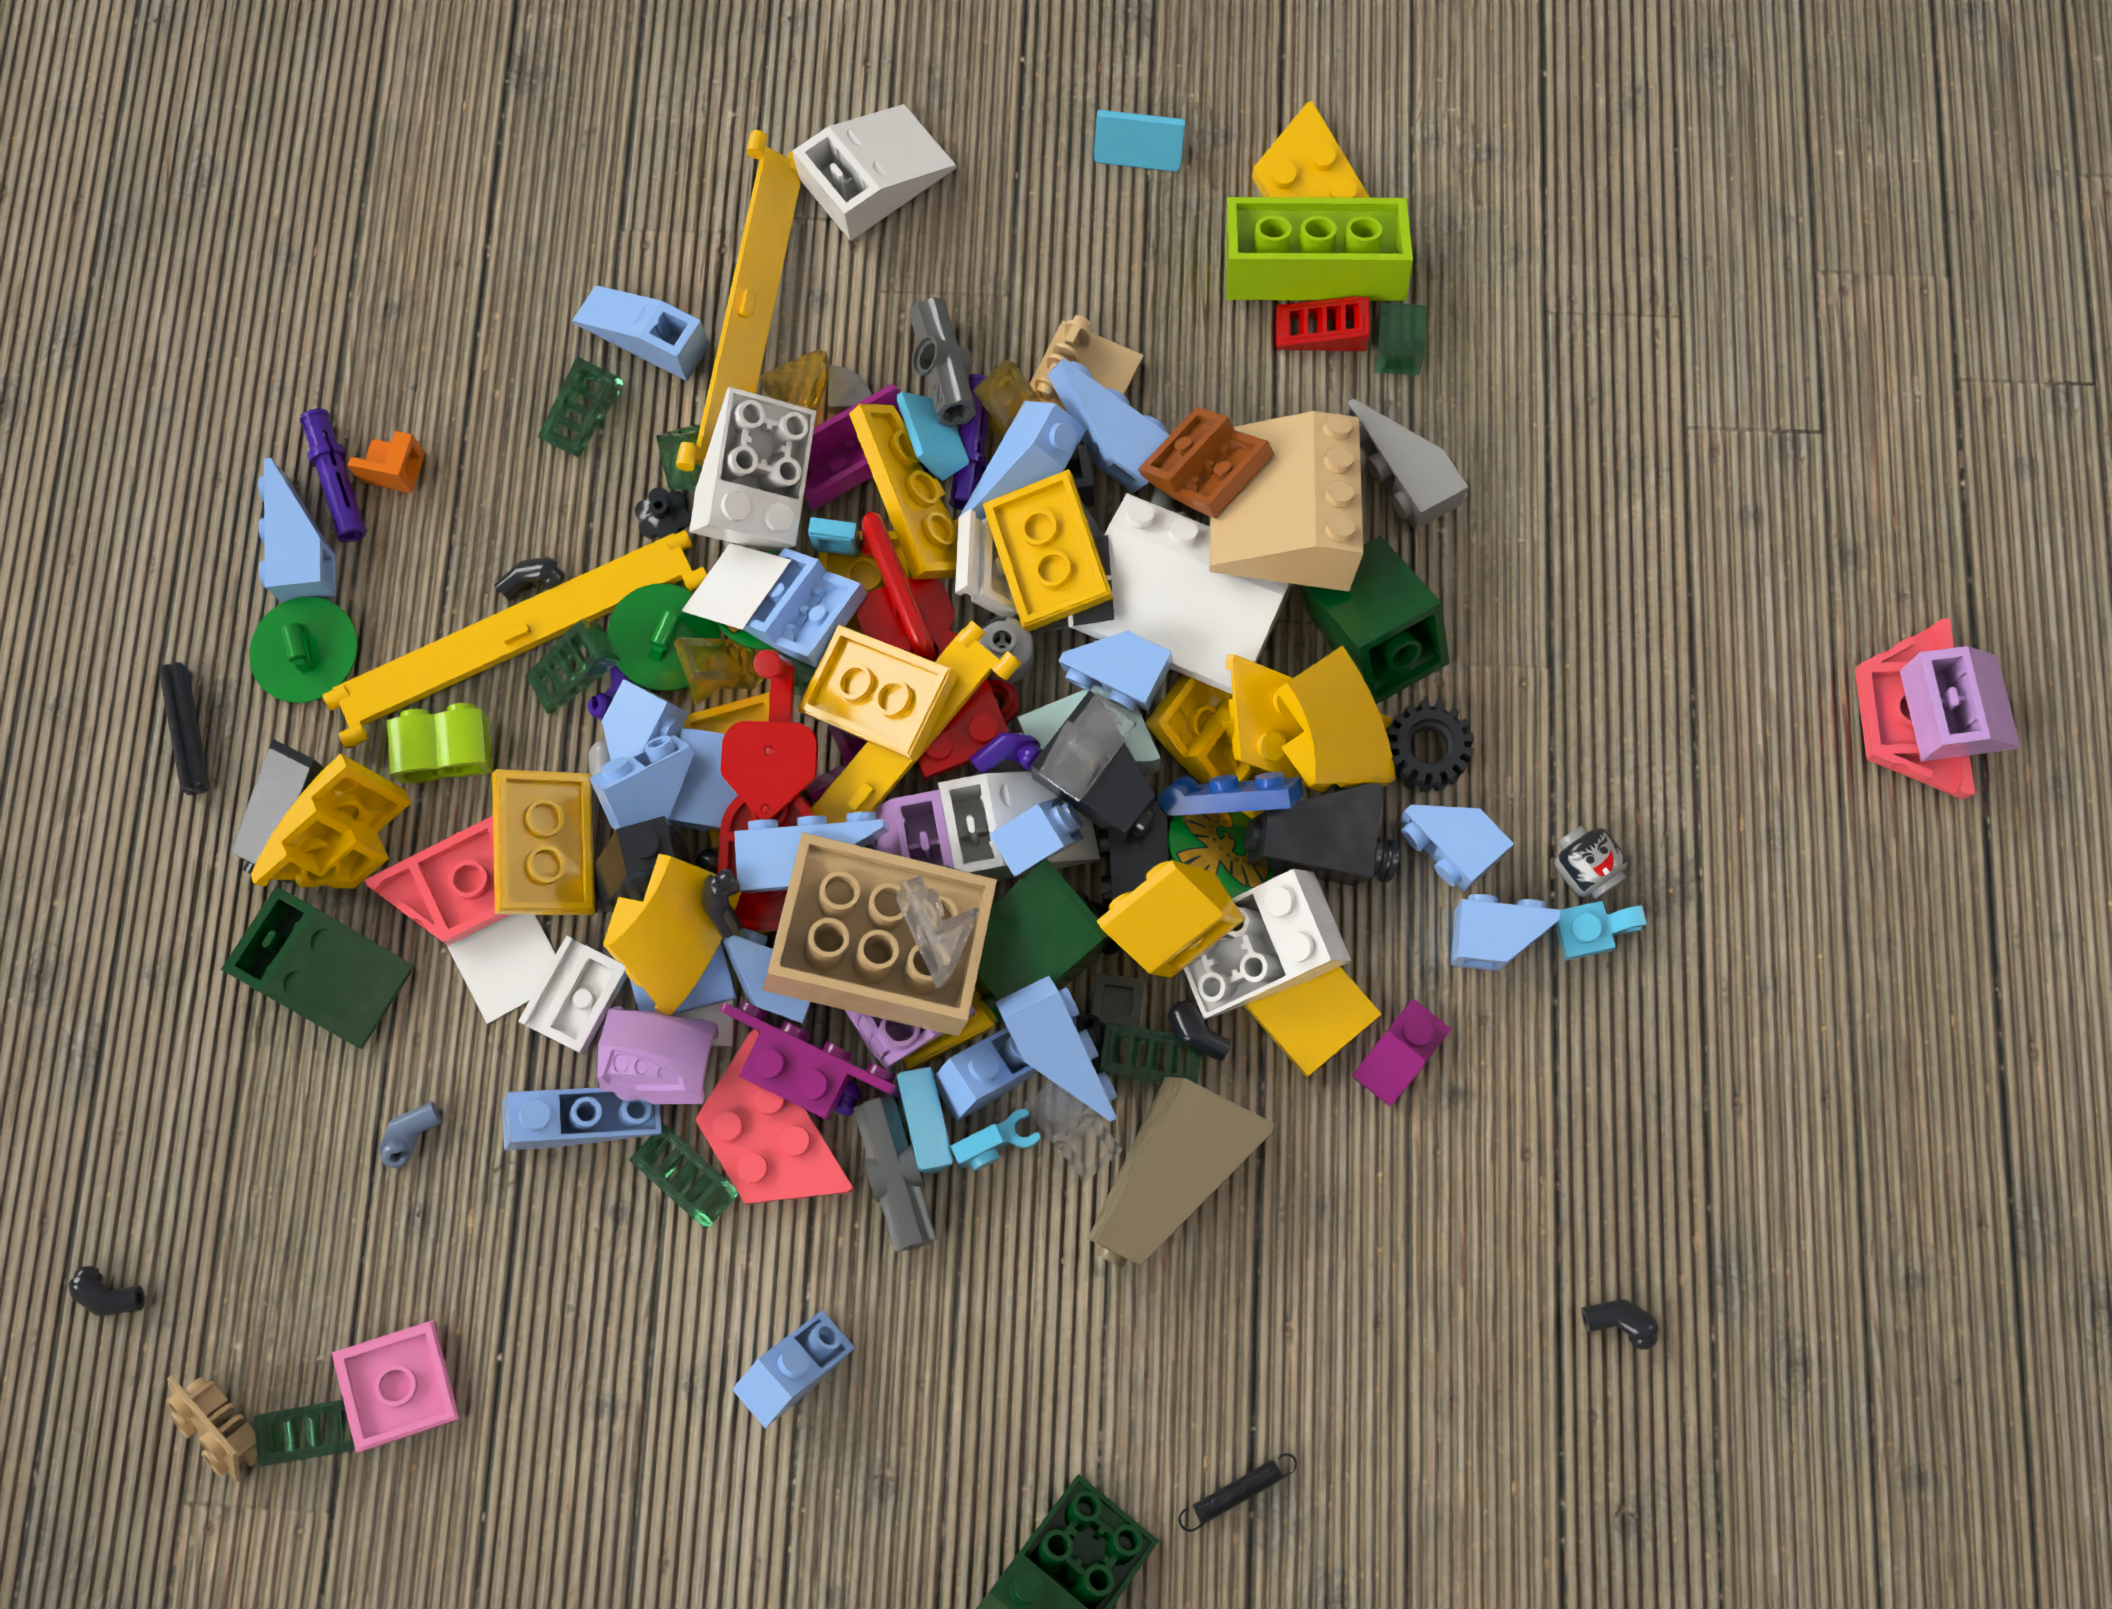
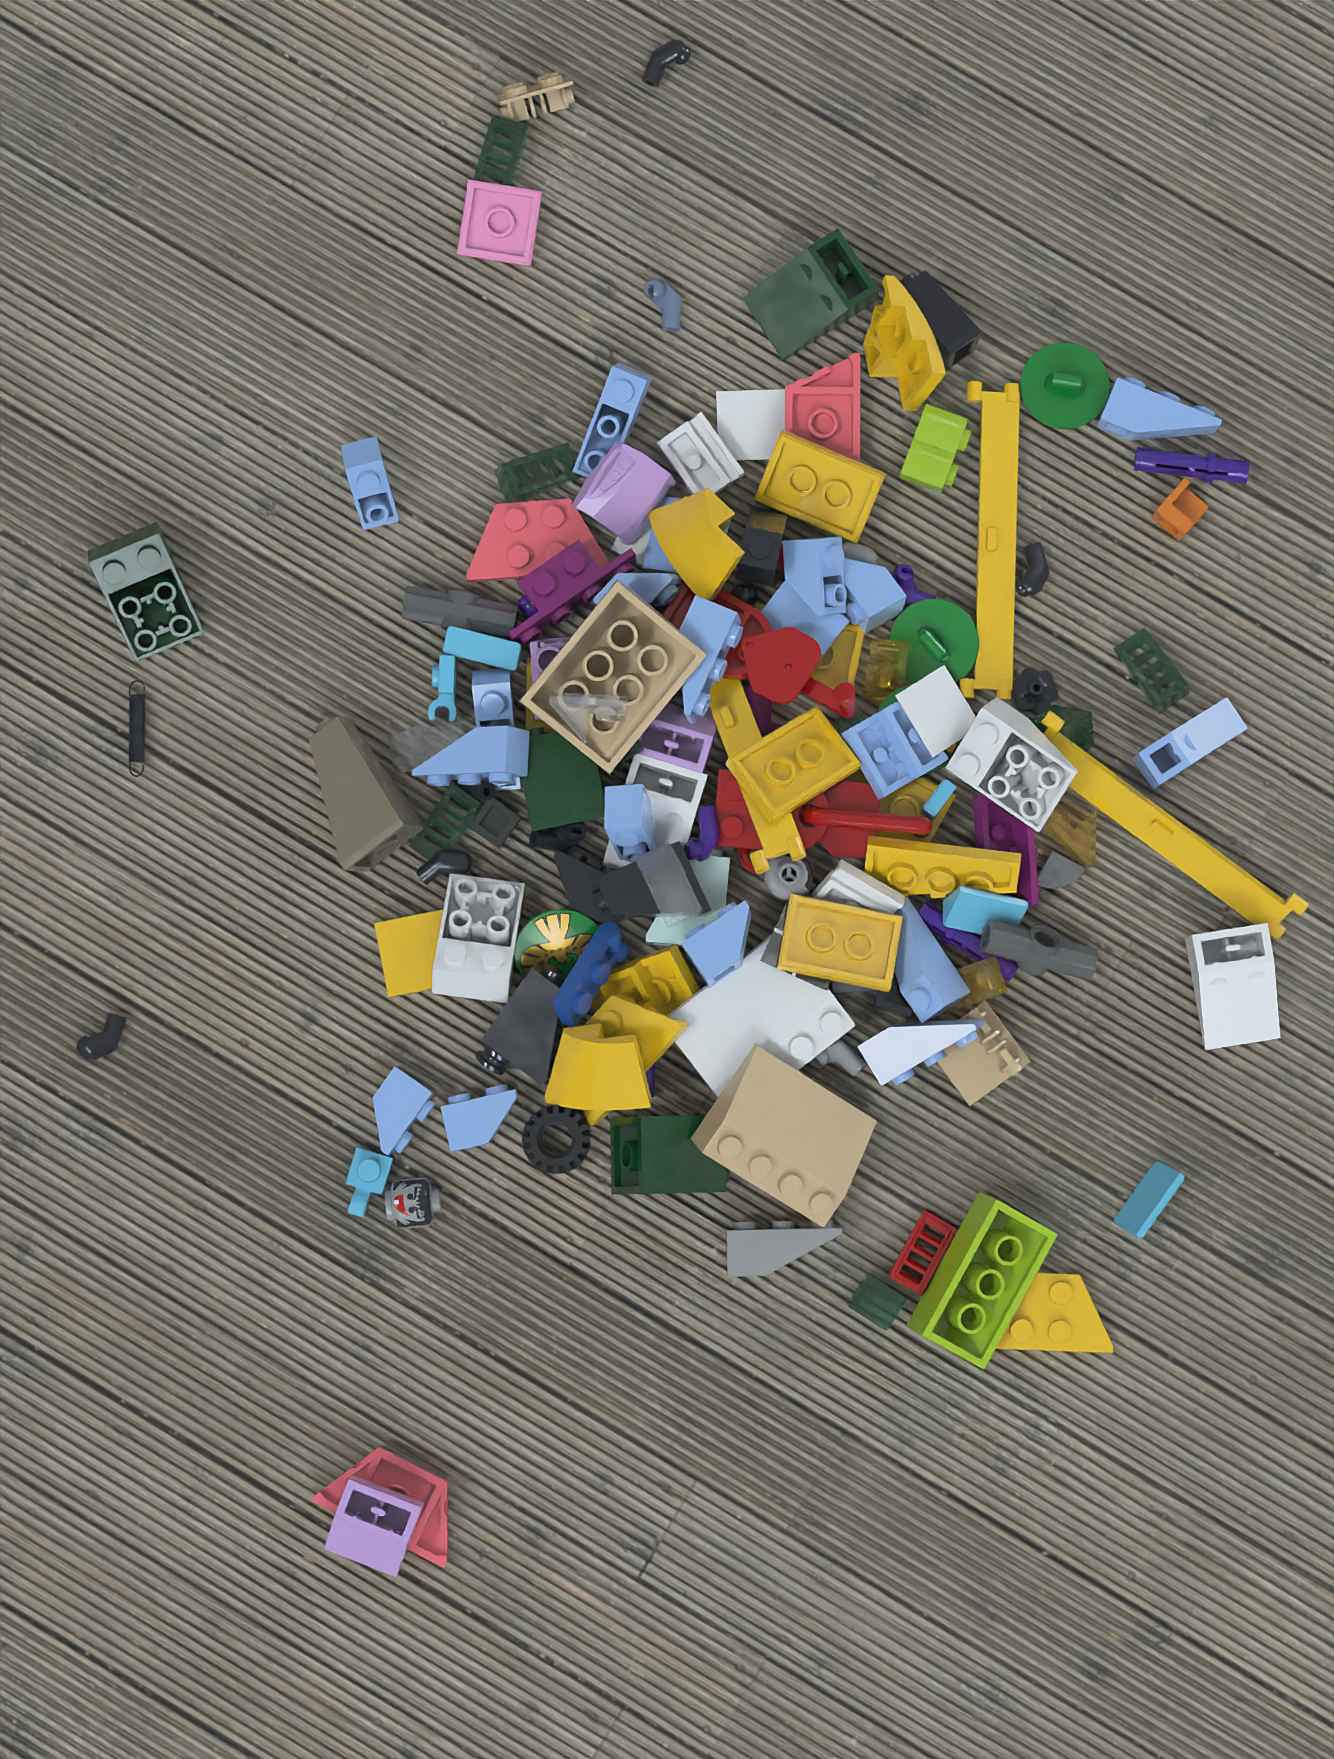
camera: 115 degrees right, 10 degrees up
(184, 728) = (1047, 277): black axle -> none
(601, 659) = (943, 590): clear green slope -> none
(717, 905) = (693, 577): black arm -> none
(1171, 917) = (521, 881): yellow slope -> none
(1206, 462) = (846, 1093): dark orange slope -> none
(1401, 1052) = (356, 997): magenta slope -> none

